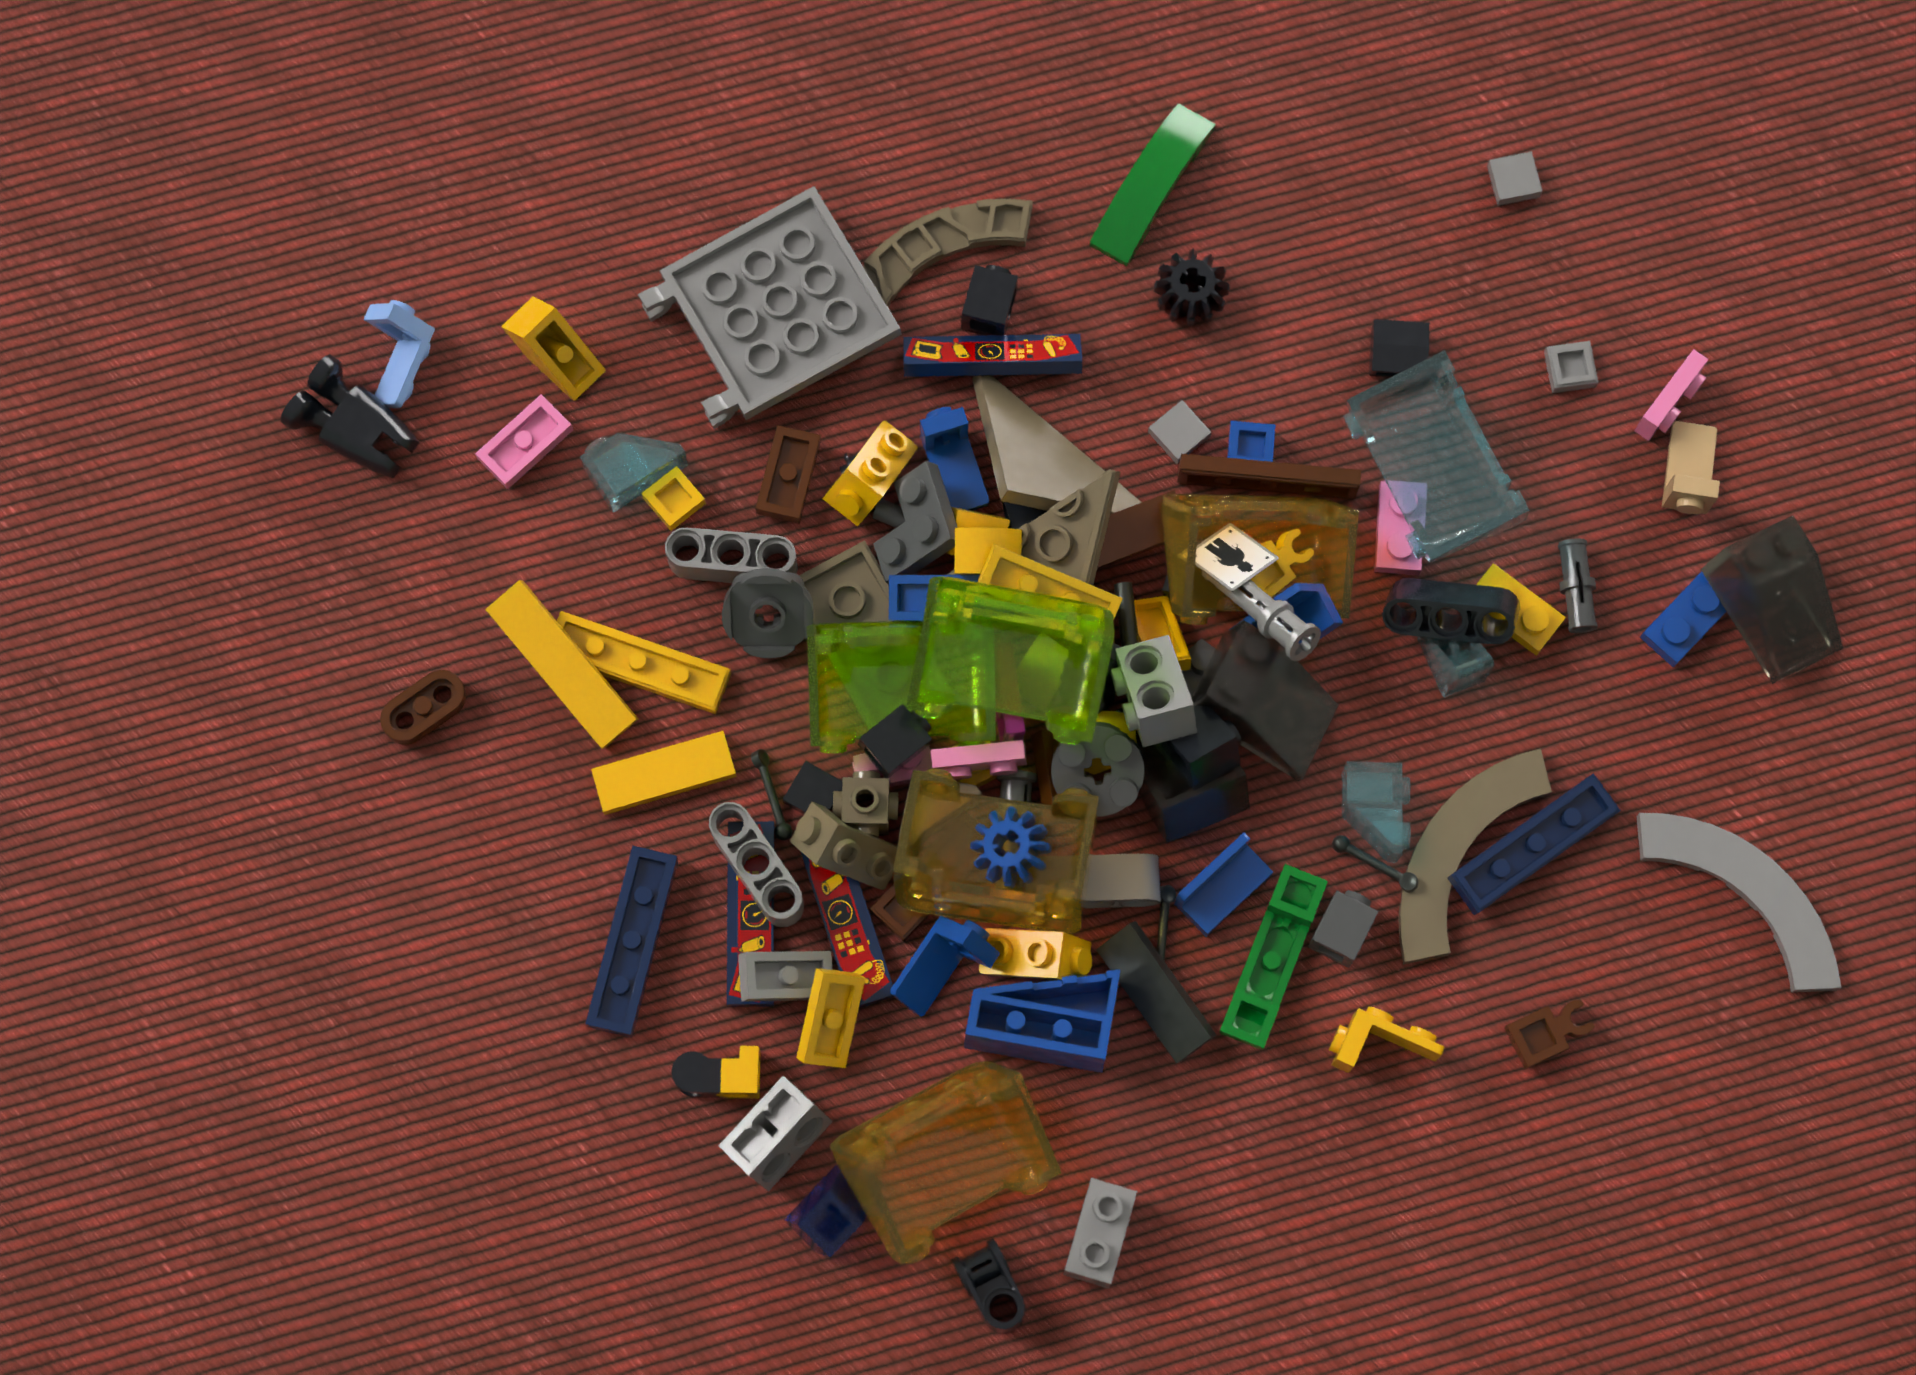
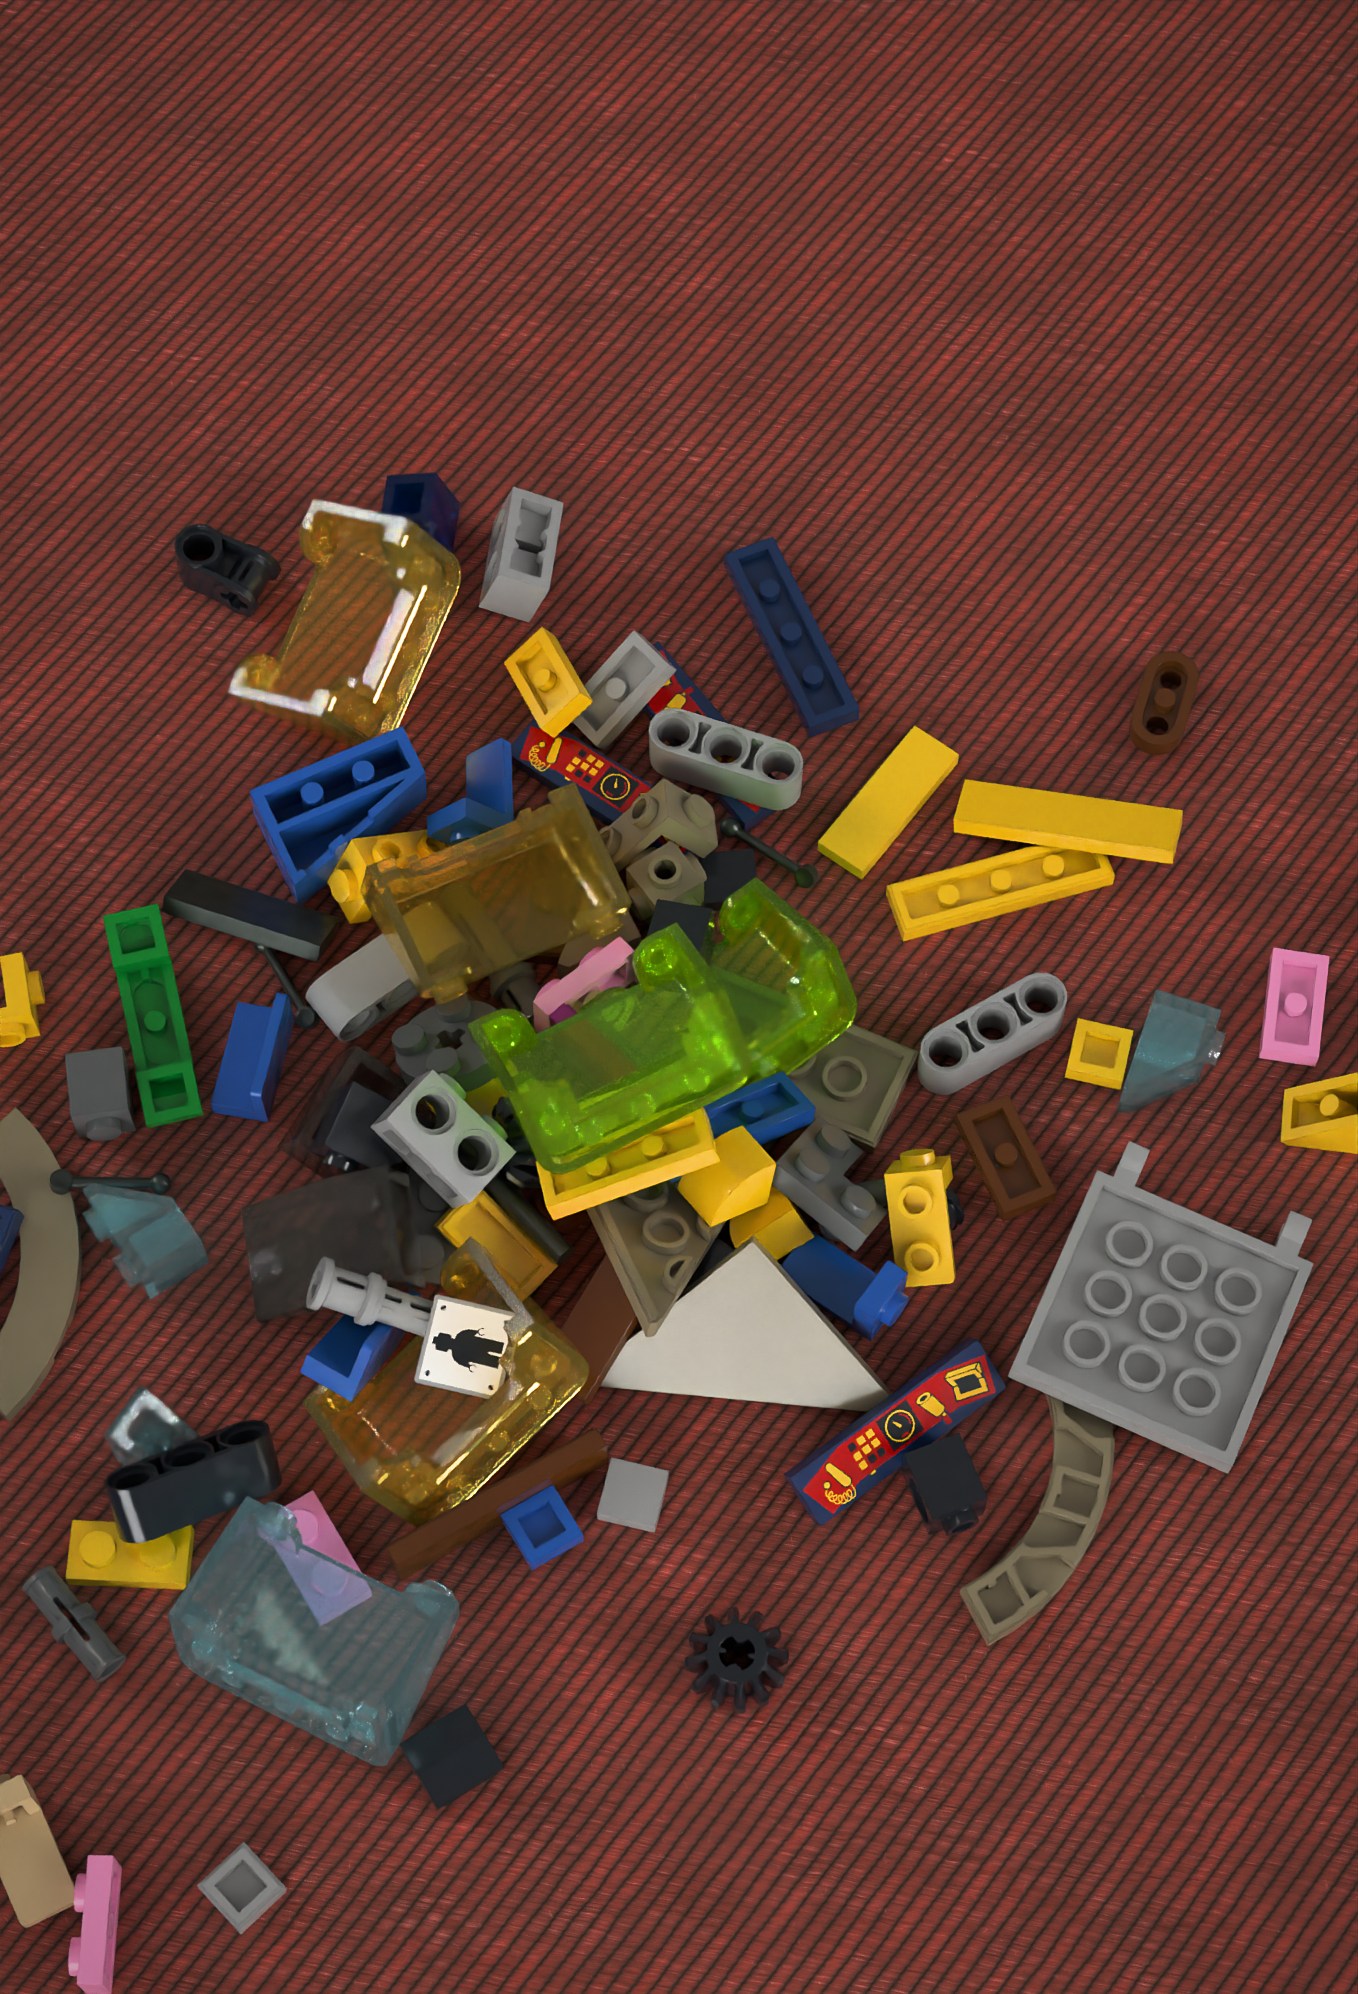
camera: 145 degrees right, 10 degrees down
(719, 1077) = (613, 578): leg -> none
(774, 588) = (907, 998): dark grey plate -> none
(1010, 830) = (481, 904): blue gear -> none
(1100, 1233) = (154, 671): light grey brick -> none
(1150, 183) = (875, 1769): green slope -> none
(1279, 573) = (417, 1401): yellow plate -> none

